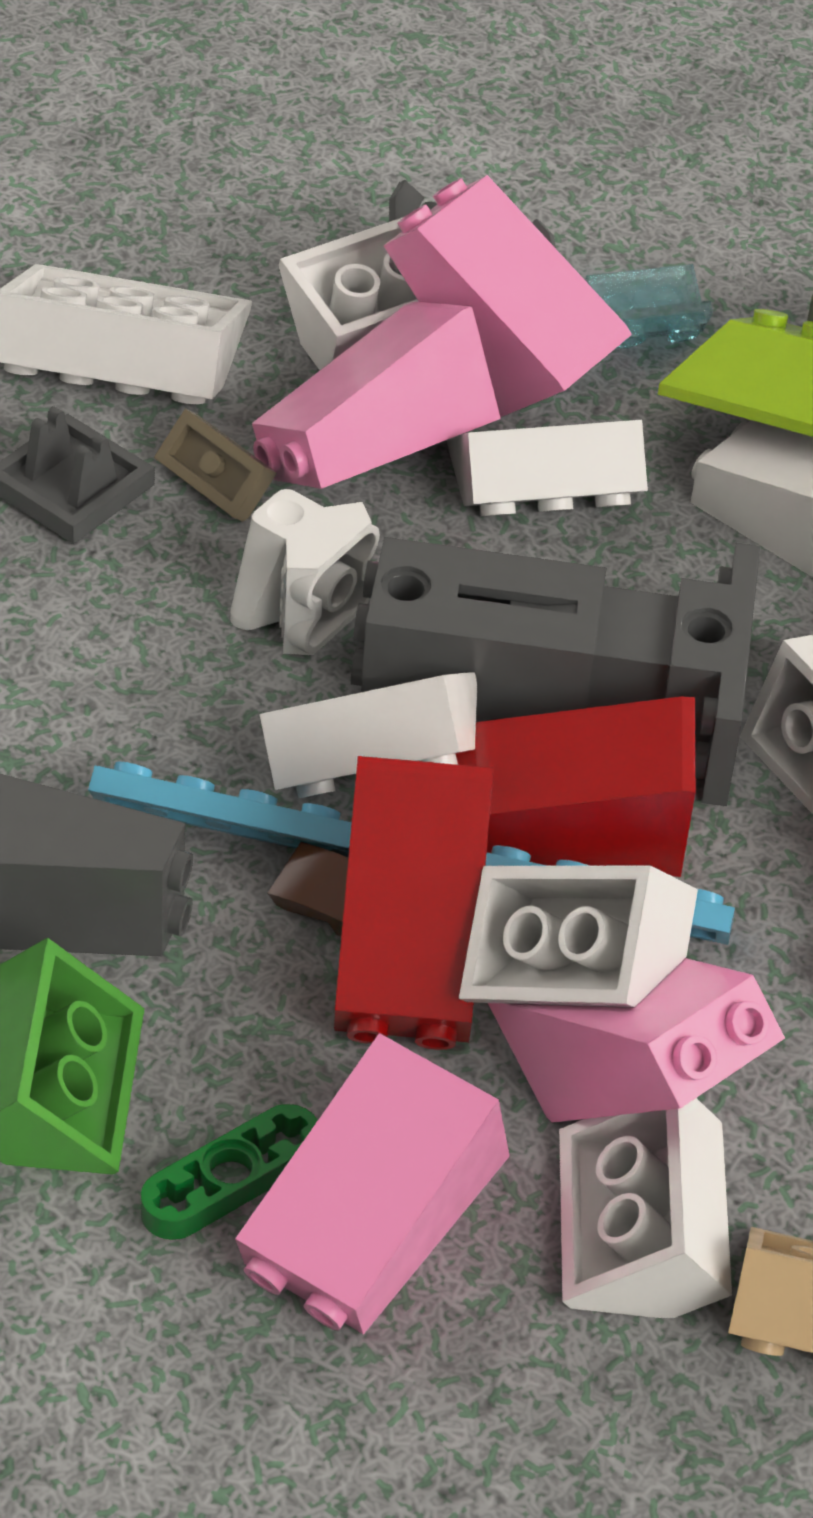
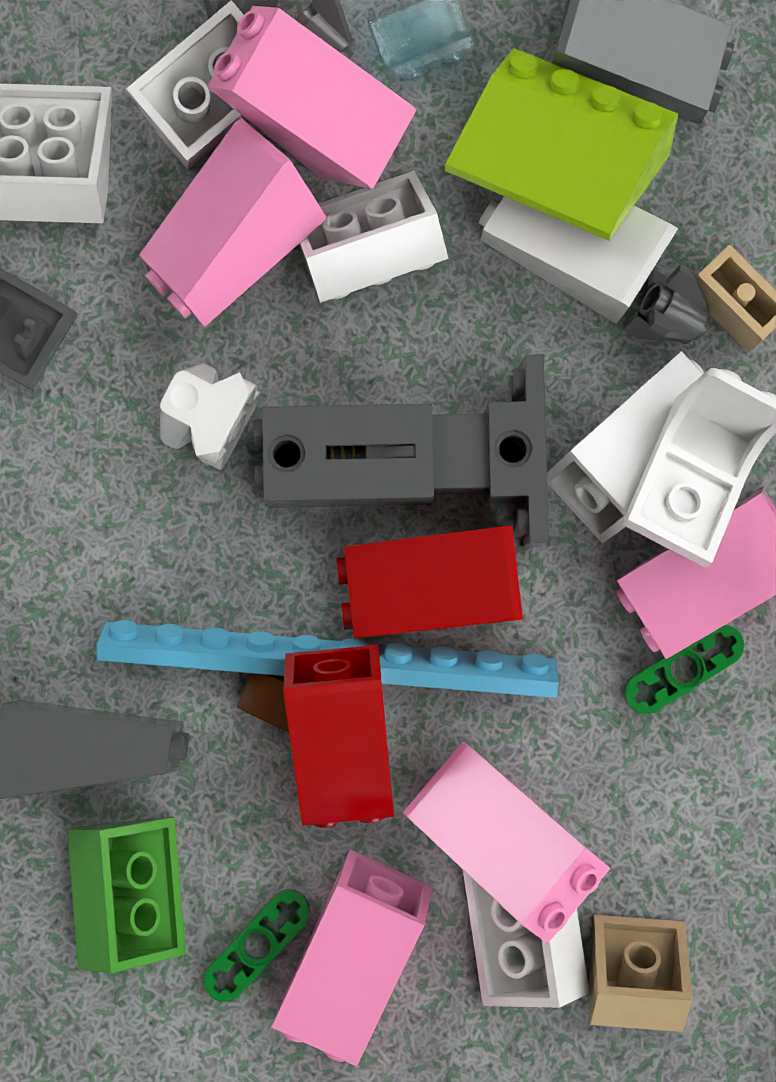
camera: 10 degrees left, 40 degrees up
(215, 465) = (119, 294): dark tan plate -> none
(403, 722) = (284, 564): white slope -> none
(575, 934) = (458, 789): white slope -> none

